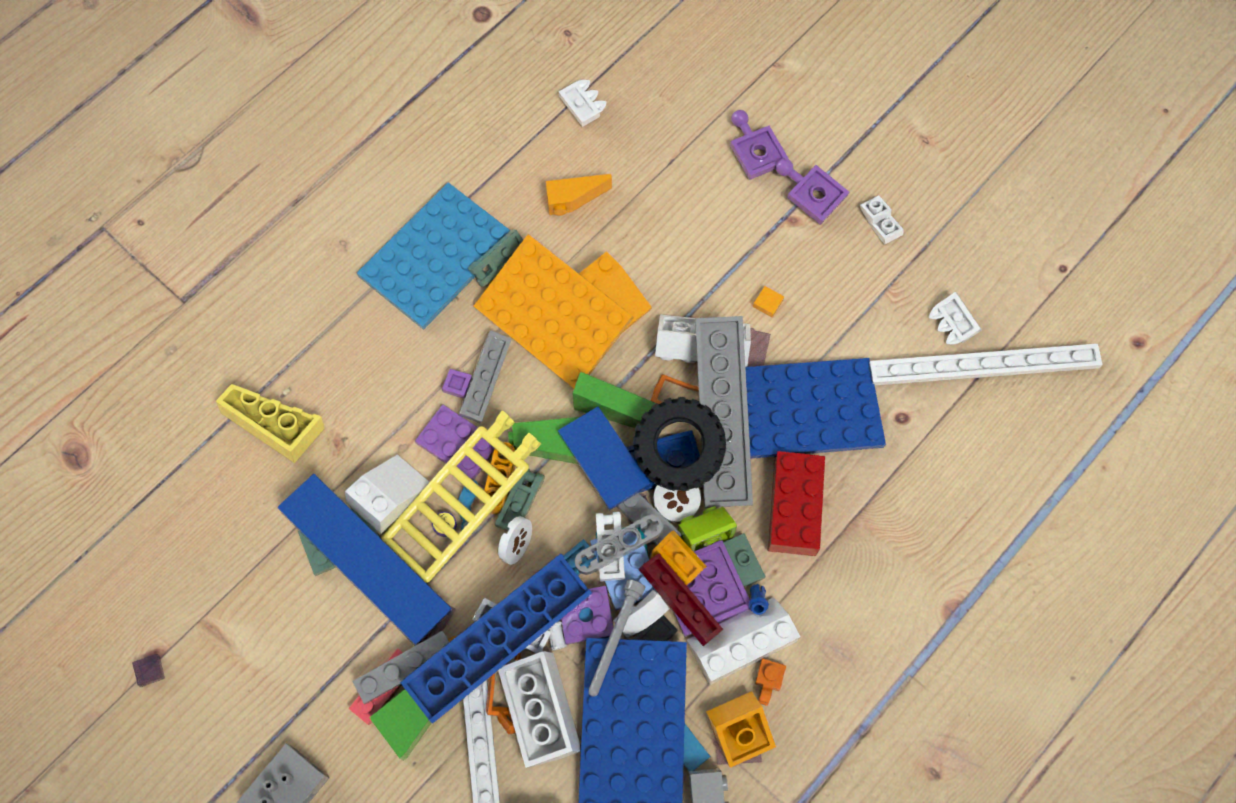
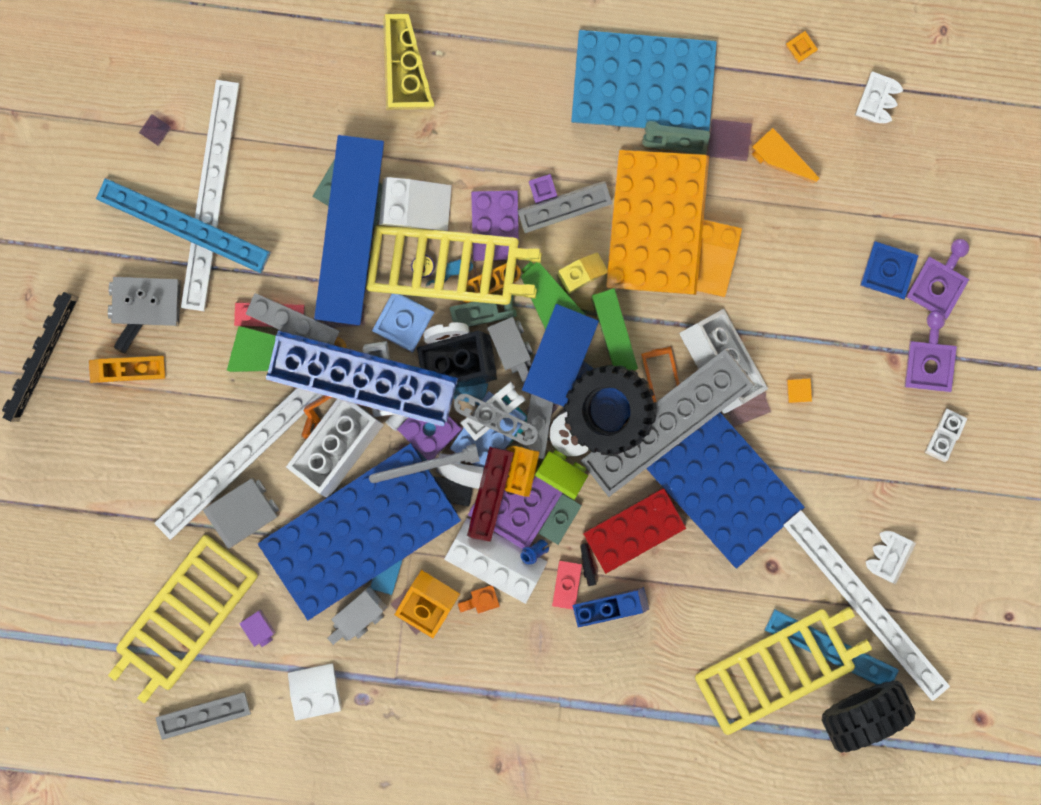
camera: 55 degrees right, 20 degrees up
(243, 664) = (211, 191): none -> white plate
(244, 704) = (183, 225): none -> dark azure tile
(477, 573) = (403, 321): none -> light blue plate
(501, 129) = (801, 47): none -> light orange tile
(531, 220) = (729, 140): none -> clear purple piece
(543, 540) = (463, 357): none -> black slope
(547, 395) = (582, 272): none -> light yellow slope
(567, 497) = (510, 346): none -> light grey hinge
(720, 176) = (889, 270): none -> blue plate
(800, 564) = (588, 566): none -> black animal
(805, 594) = (566, 584): none -> coral plate
(851, 569) = (611, 607): none -> blue slope
(1005, 417) = (865, 665): none -> dark azure tile
(1026, 476) = (787, 696): none -> light yellow bar
(1091, 413) = (868, 716): none -> black tyre

